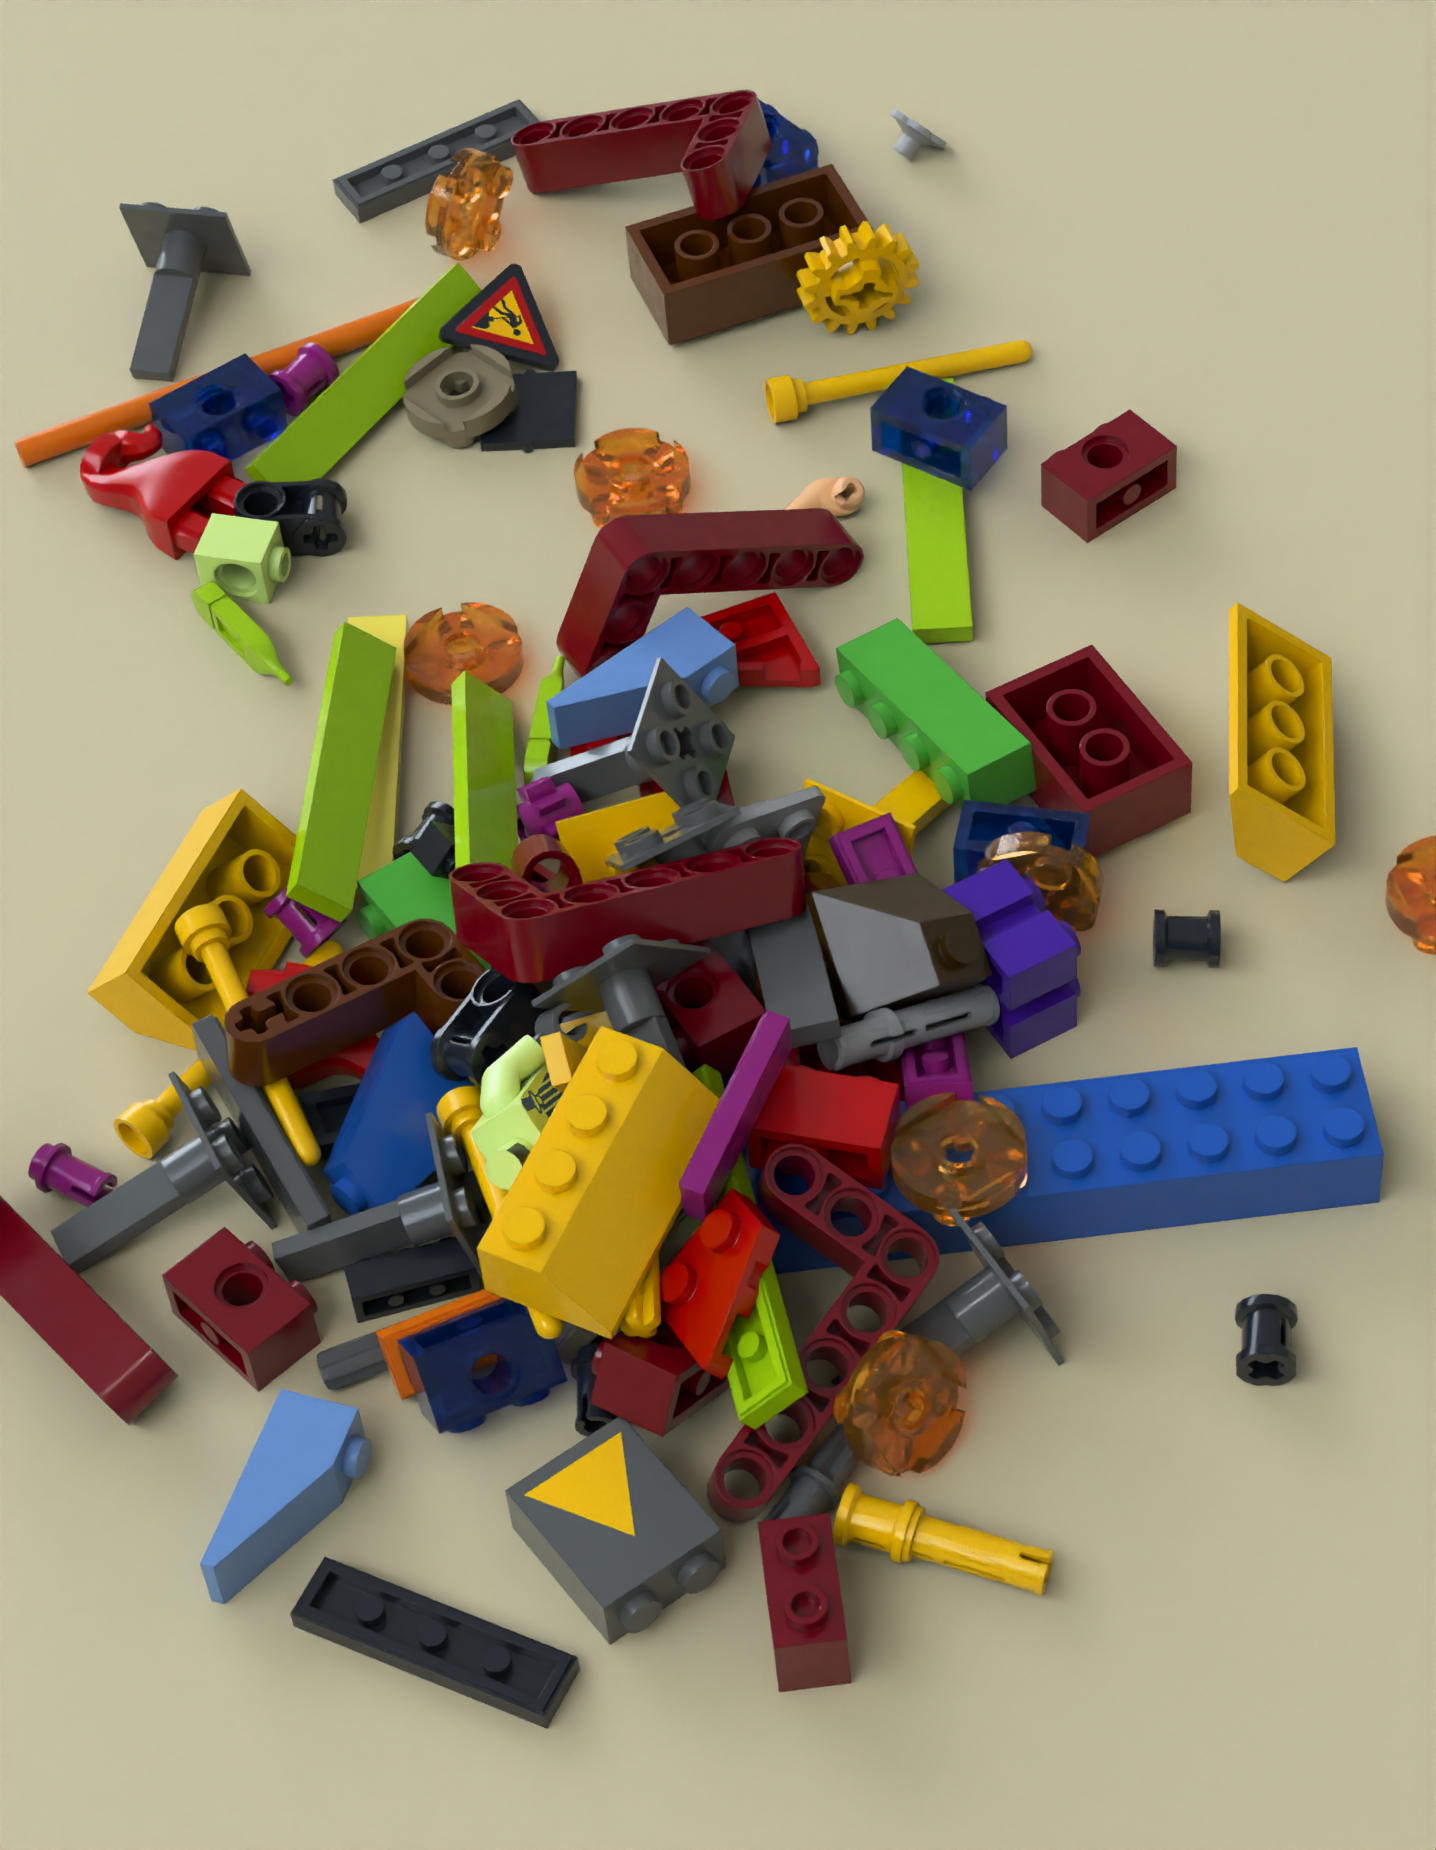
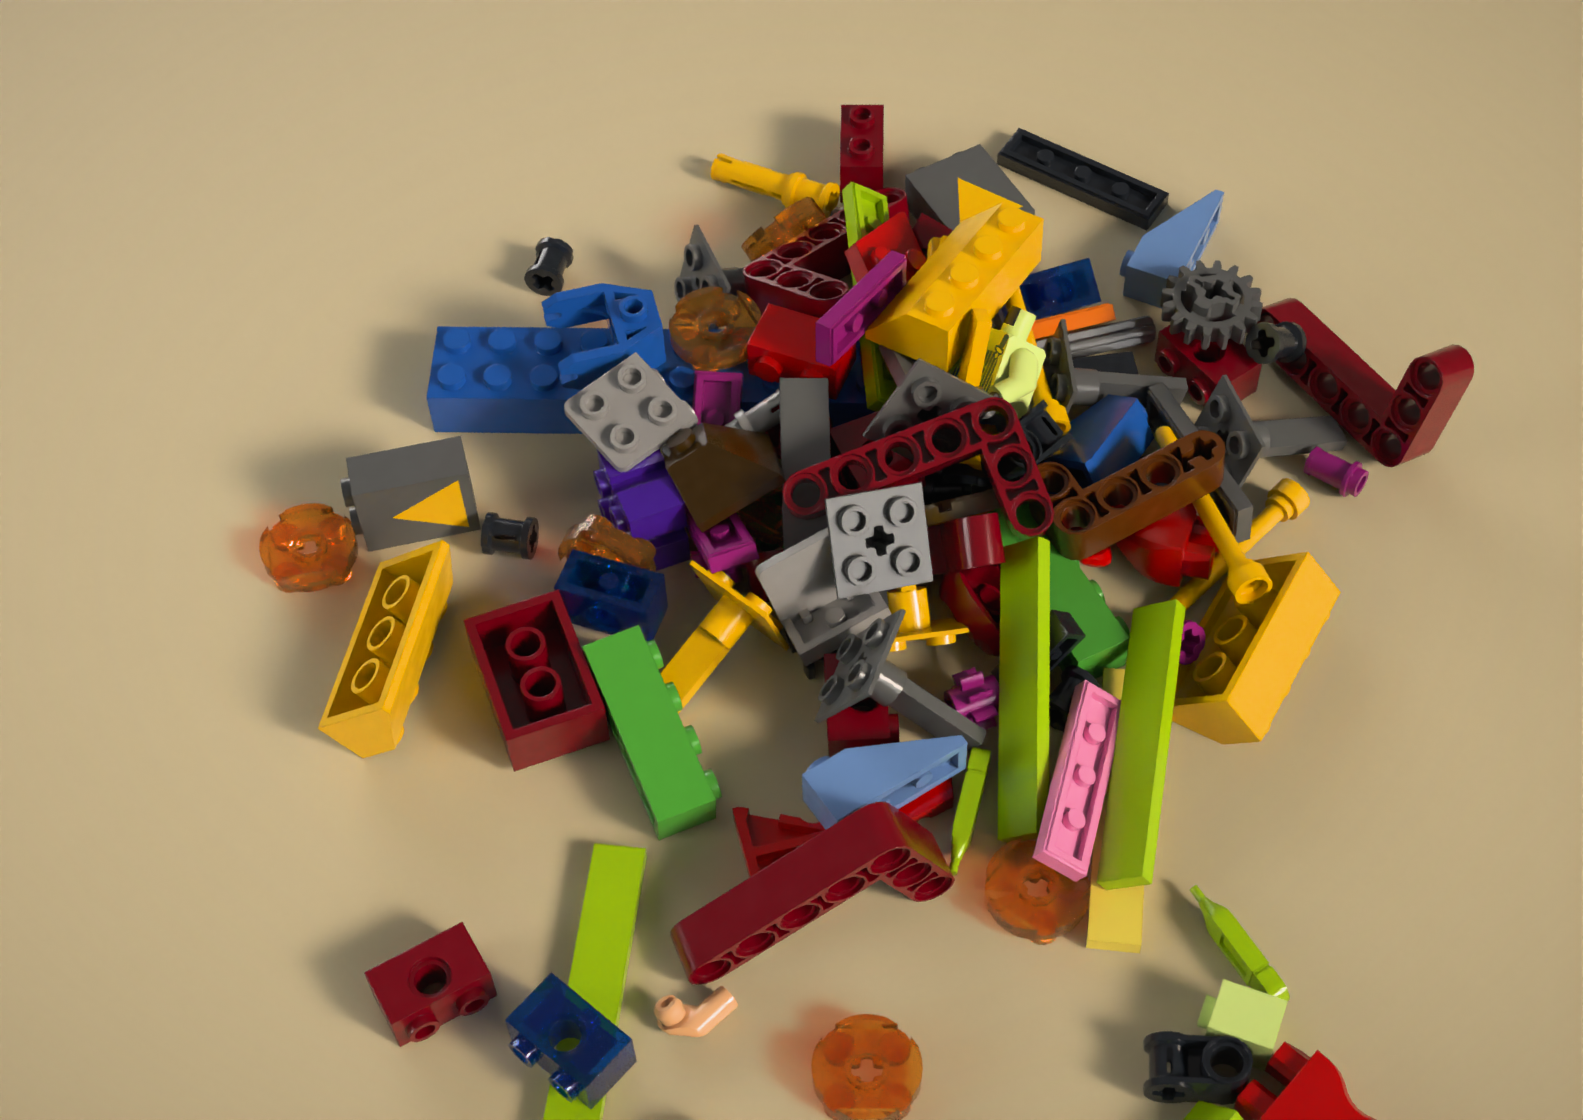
camera: 175 degrees left, 5 degrees up
(139, 1285) = (1277, 342): none -> black bush
(231, 1313) = (1210, 304): none -> dark grey gear
(415, 729) = (1079, 782): none -> bright pink tile
(1030, 990) = (629, 413): none -> light grey bracket
(1078, 1121) = (631, 322): none -> blue piece
(1325, 930) = (410, 494): none -> dark grey brick

